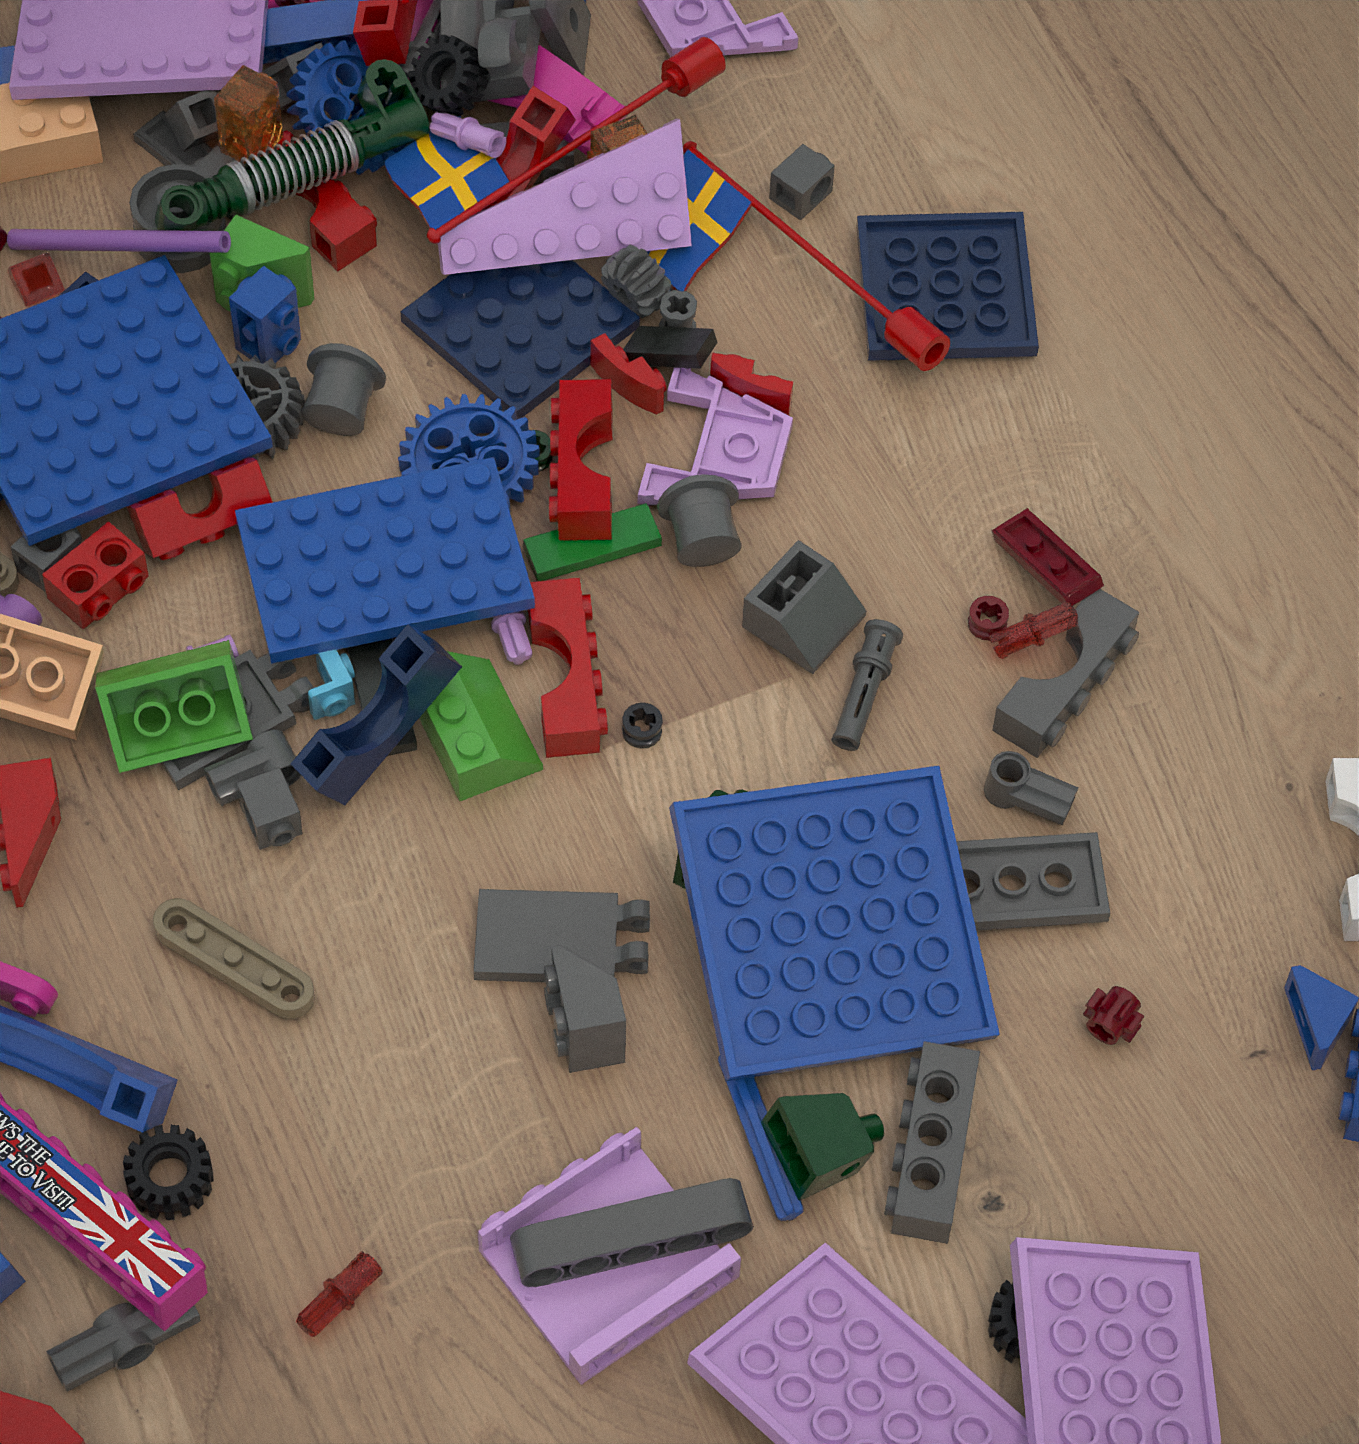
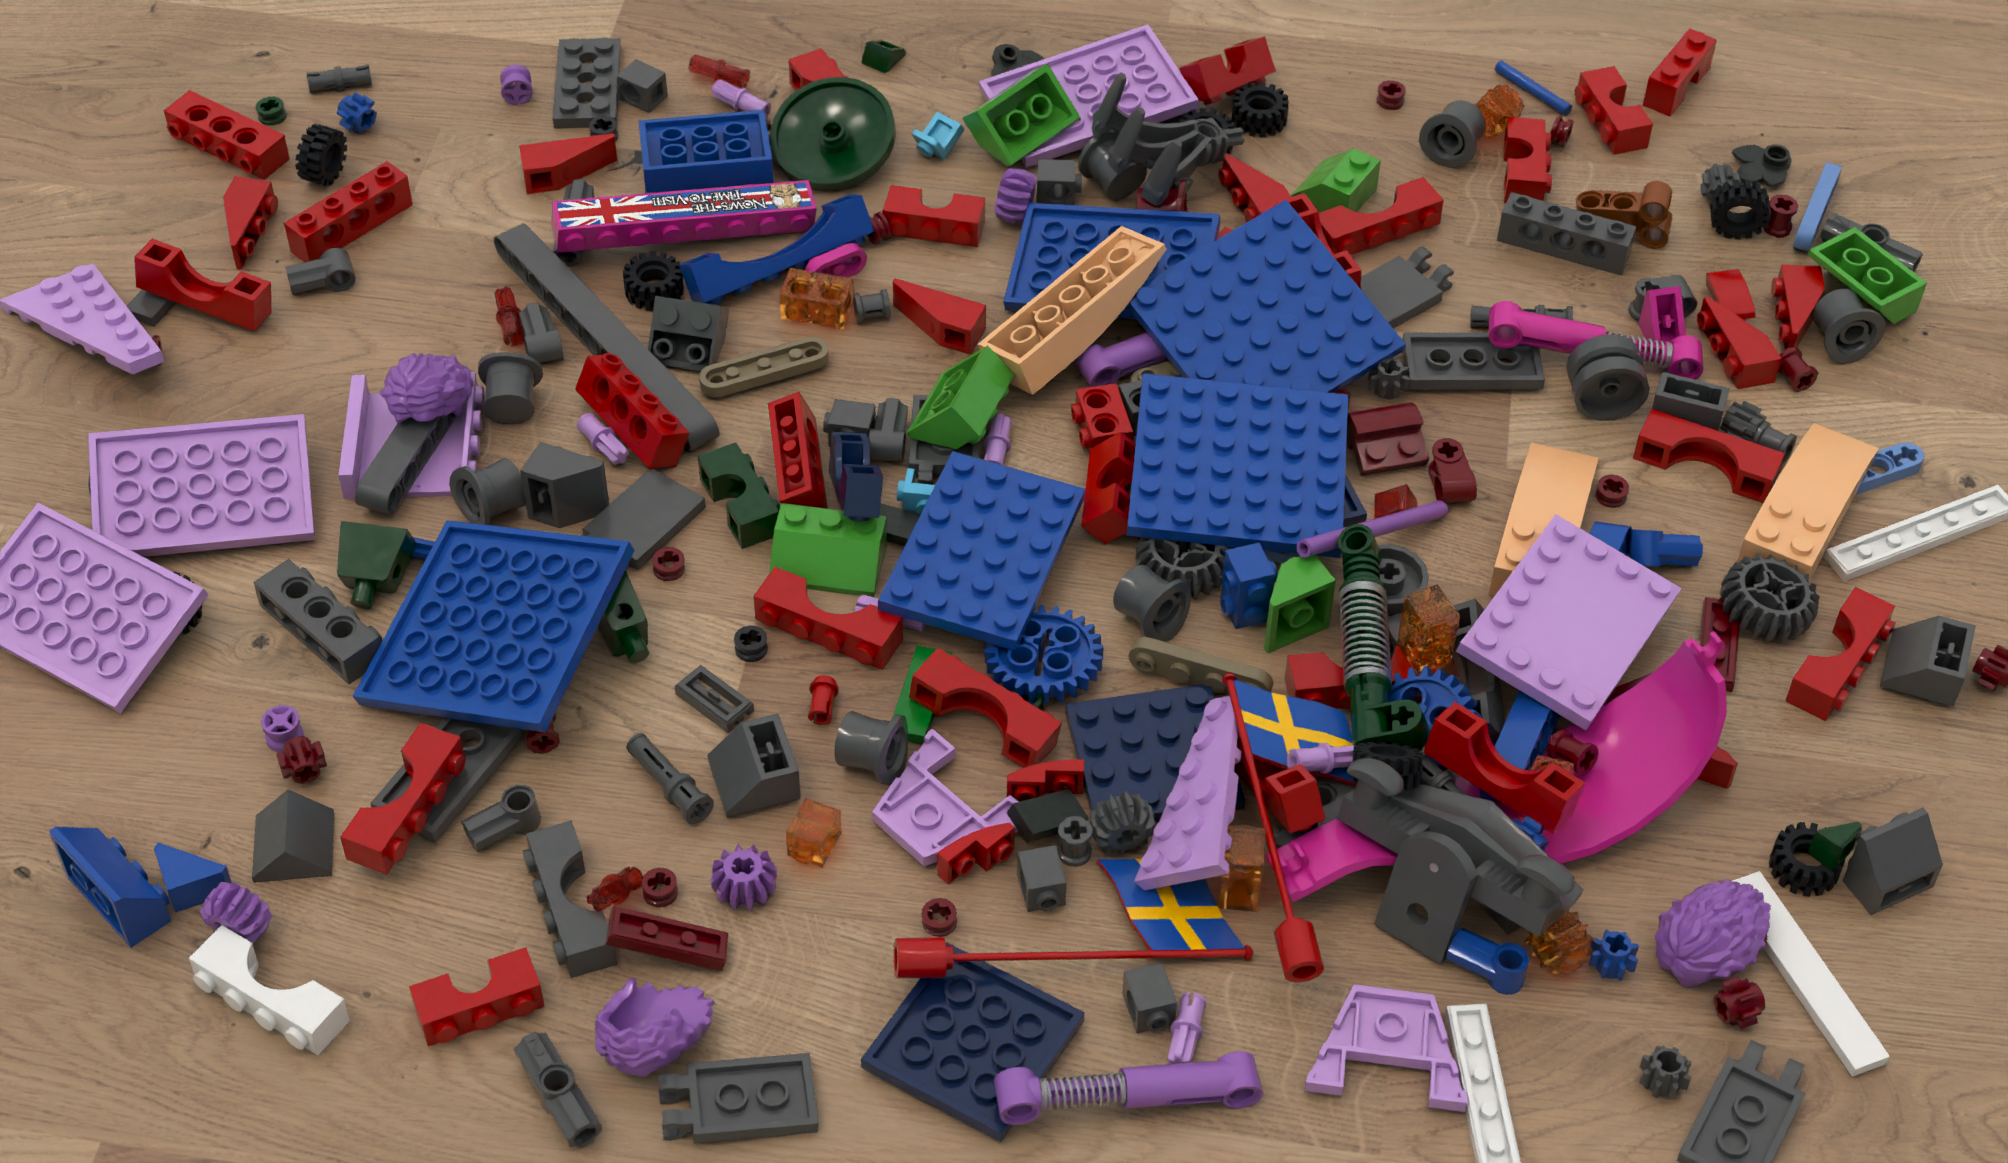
camera: 125 degrees right, 10 degrees down
(55, 907) = (871, 305): none -> dark grey bush
(81, 969) = (816, 298): none -> clear orange brick
(234, 1069) = (687, 332): none -> dark grey slope
(295, 1172) = (599, 328): none -> dark grey beam
(357, 1222) = (540, 337): none -> dark grey piece
(368, 816) = (797, 452): none -> red brick
(398, 338) = (1192, 666): none -> dark tan plate
(412, 1032) = (632, 411): none -> red brick
(465, 1049) = (602, 438): none -> lavender axle
(468, 821) = (732, 475): none -> dark green arch
(470, 1183) = (509, 386): none -> dark grey piece
(550, 1248) = (426, 387): none -> medium lavender hair
(594, 858) = (664, 555): none -> dark red bush
(642, 1087) = (487, 491): none -> dark grey piece
(667, 615) = (823, 693): none -> red pin
(730, 747) = (709, 702): none -> dark grey tile
(741, 320) = (1041, 878): none -> dark grey brick
(820, 141) = (1186, 1029): none -> lavender axle
(835, 521) = (813, 833): none -> clear orange brick
(838, 396) = (946, 909): none -> dark red bush
(839, 89) = (1228, 1080): none -> medium lavender piece
(927, 548) = (743, 877): none -> medium lavender gear
(1096, 1064) = (280, 725): none -> medium lavender wheel
(1144, 419) = (741, 1099): none -> dark grey tile
(1145, 504) = (650, 1027): none -> medium lavender hair
(1147, 852) = (381, 834): none -> red arch
(1200, 652) = (452, 1013): none -> red arch
(1202, 964) = (293, 839): none -> dark grey slope
(1250, 568) = (567, 1105): none -> dark grey piece
(1326, 924) = (236, 910): none -> medium lavender gear

